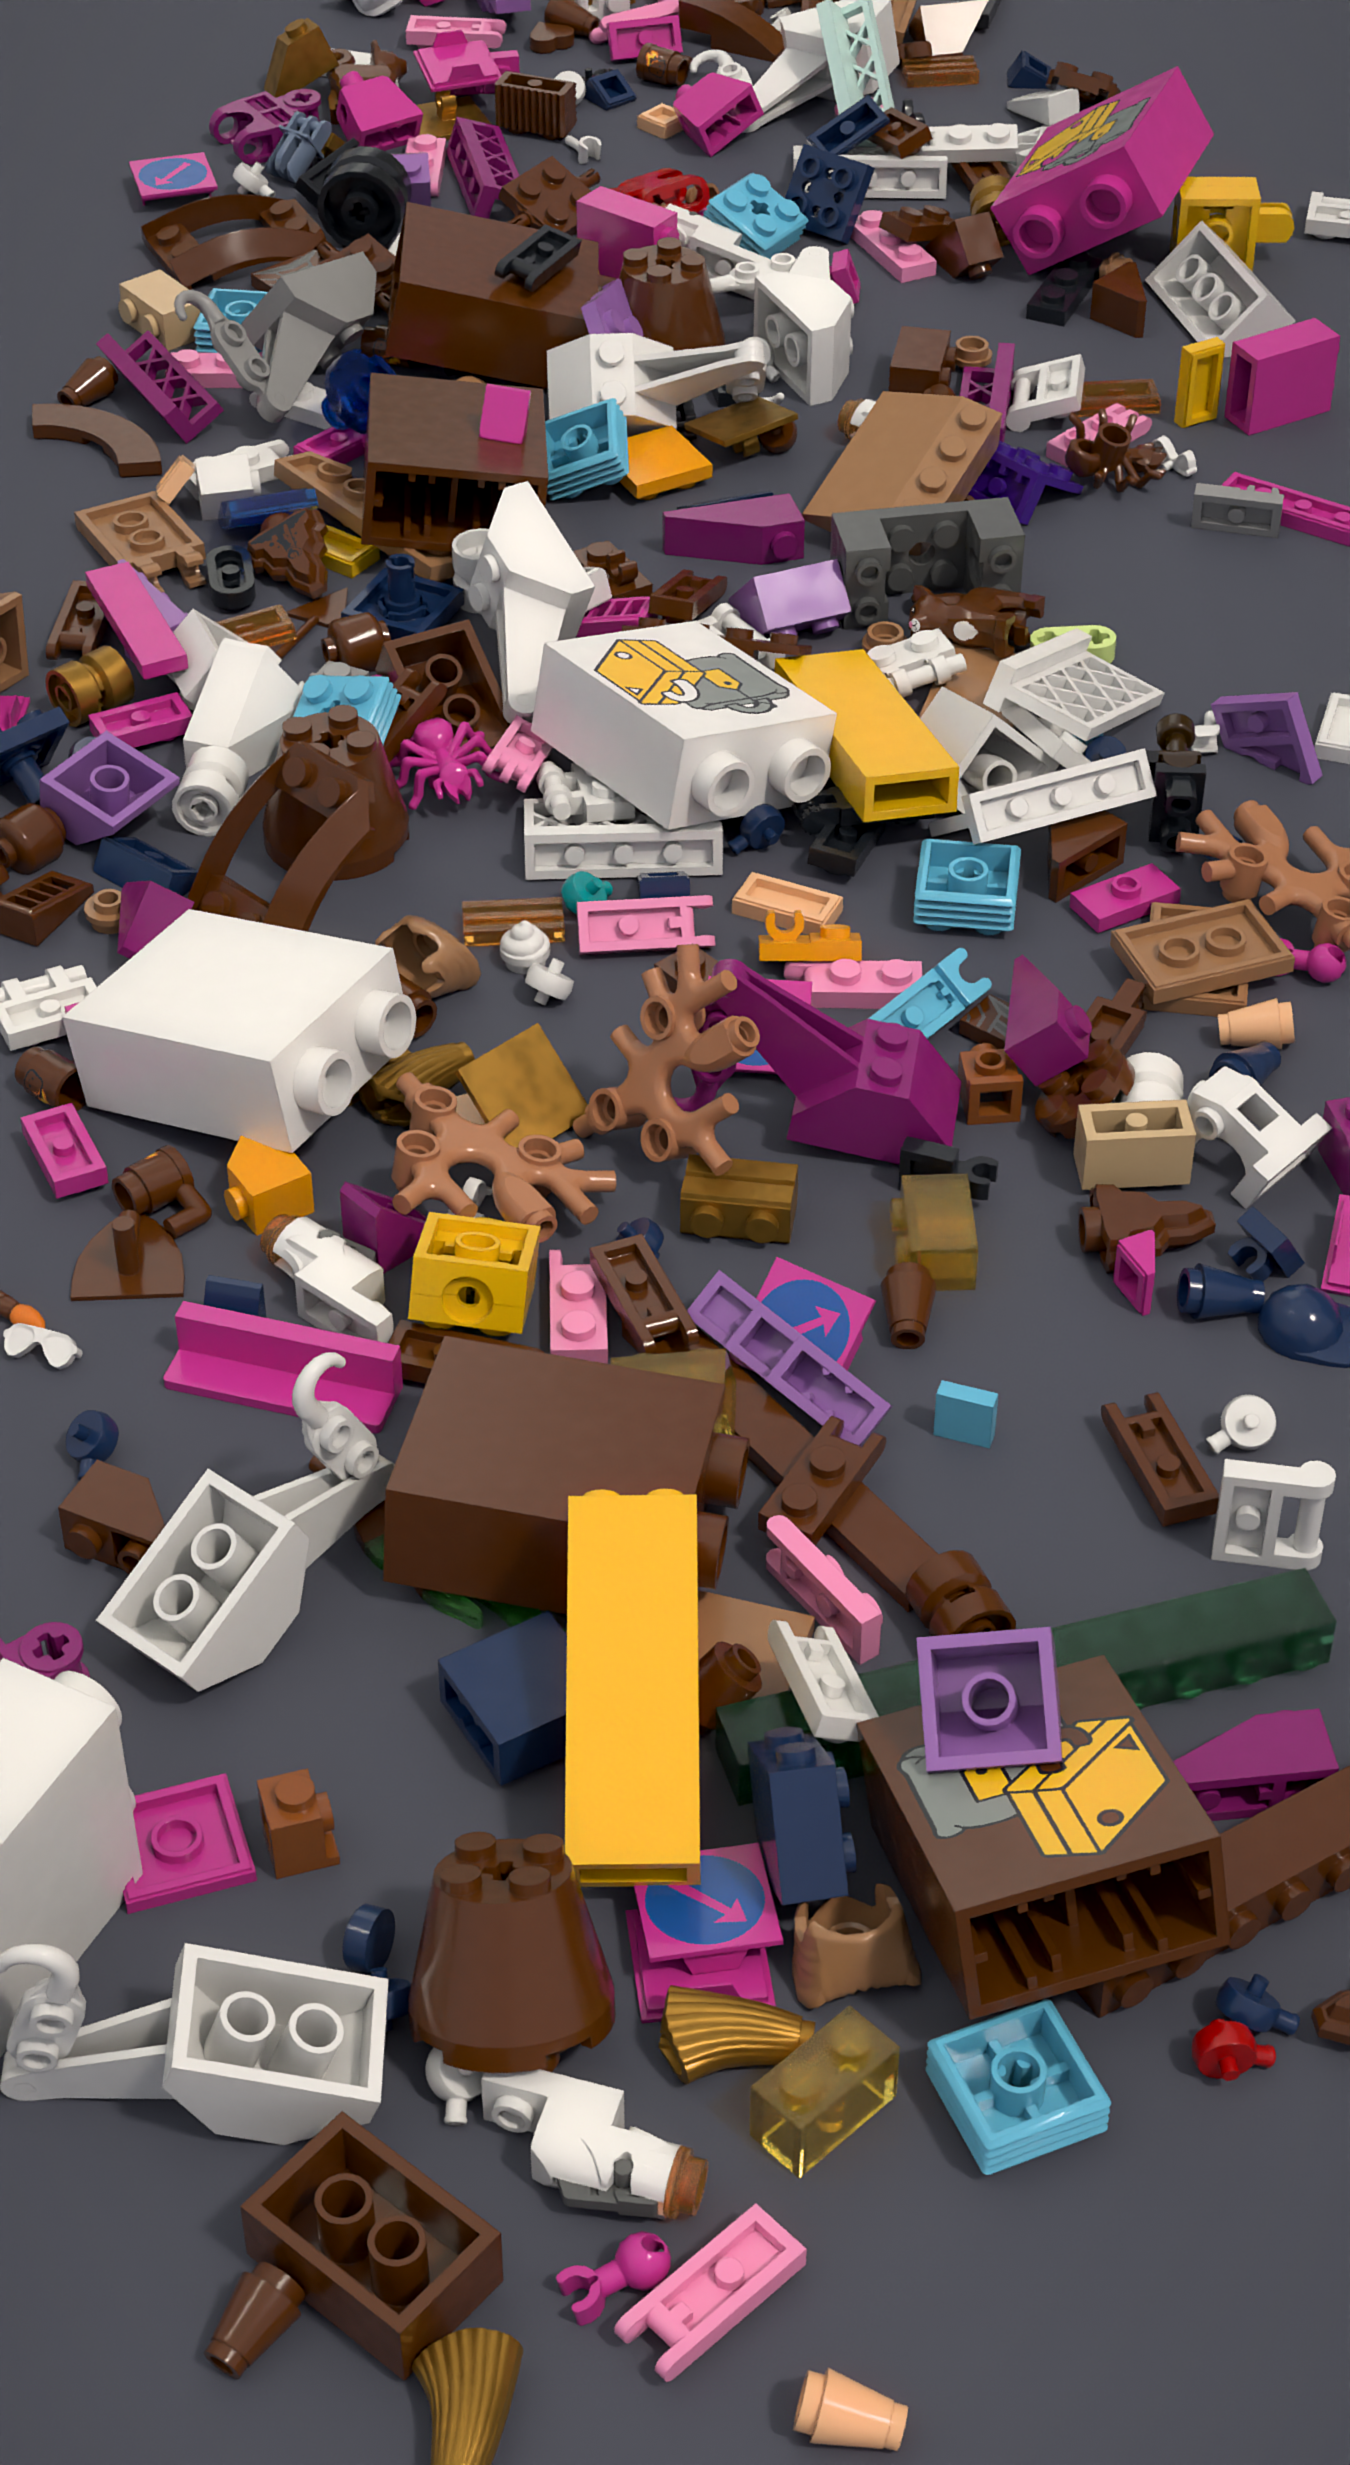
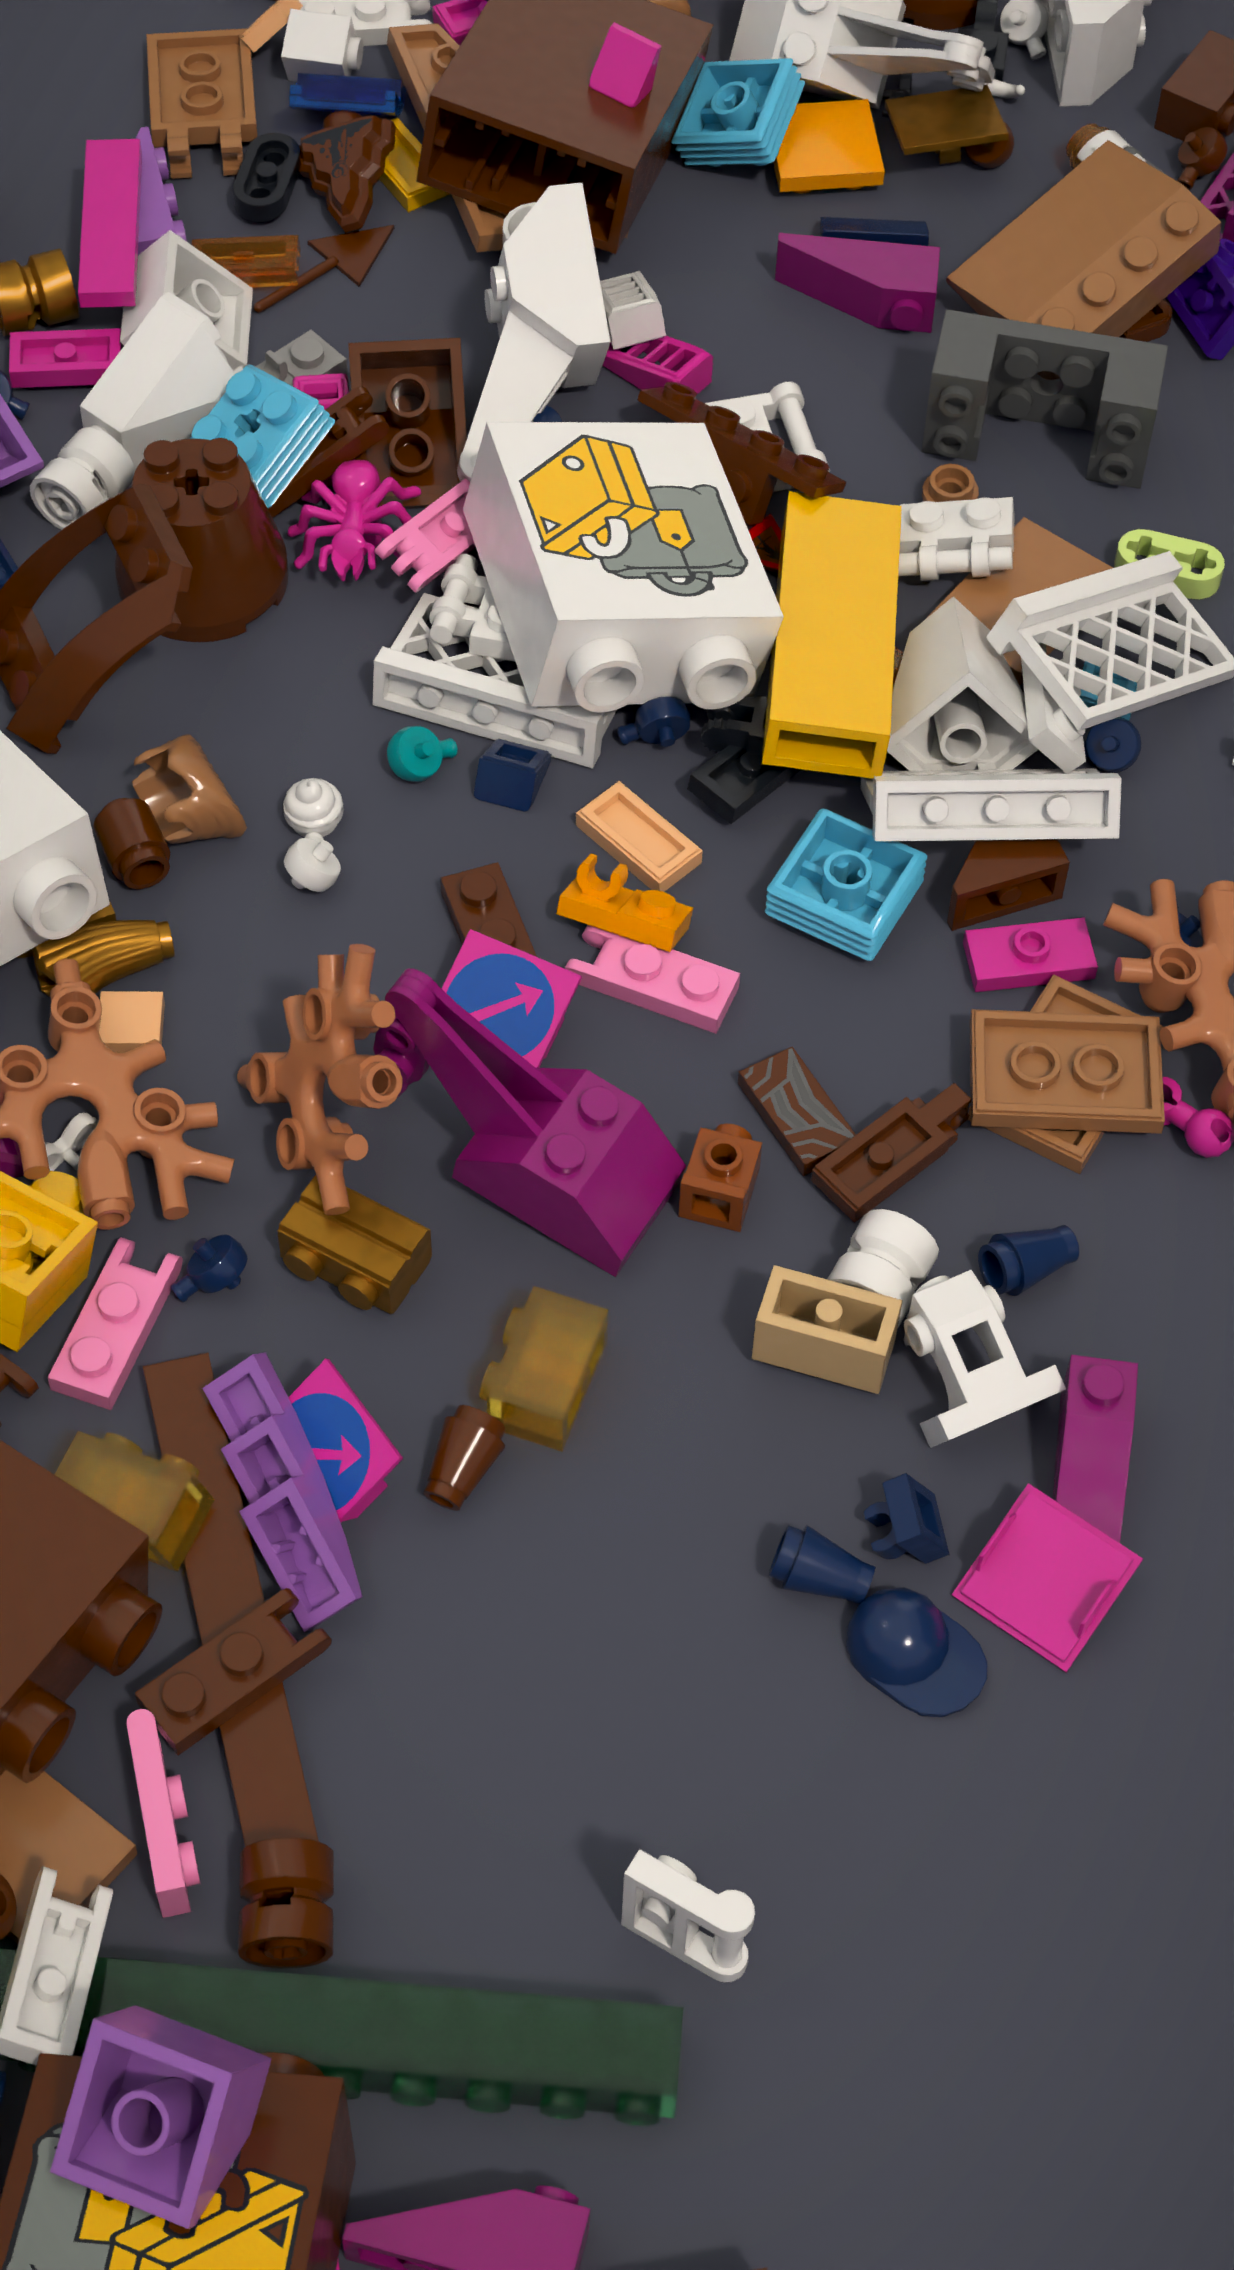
camera: 20 degrees right, 15 degrees up
(79, 623) = (58, 204): reddish brown hinge -> none
(355, 641) = (351, 314): reddish brown head -> none
(405, 600) = (423, 267): dark blue plate -> none
(489, 919) = (327, 755): clear orange tile -> none
(527, 1079) = (198, 1013): pearl gold piece -> none
(622, 574) = (693, 294): reddish brown plate -> none
(640, 924) = (451, 819): bright pink hinge -> none
(641, 1292) = (169, 1344): reddish brown hinge -> none
(686, 596) = (752, 358): reddish brown hinge -> none
(794, 600) = (868, 407): slope -> none
(932, 1158) = (593, 1277): black plate -> none
(934, 997) = (694, 1048): medium azure plate -> none
(965, 1414) = (441, 1633): medium azure tile -> none
(977, 619) = (1069, 496): reddish brown animal -> none
(1042, 1026) = (810, 1123): magenta slope -> none
(1088, 1082) = (811, 1228): reddish brown plate -> none
(1126, 1213) = (779, 1439): reddish brown rock -> none
(1136, 1269) = (744, 1500): dark pink slope -> none
(1162, 1461) = (626, 1778): reddish brown hinge -> none
(1177, 781) = (1161, 819): black hips -> none
(1245, 1423) = (749, 1763): white piece -> none
(1258, 1023) = (1079, 1198): light nougat cone -> none

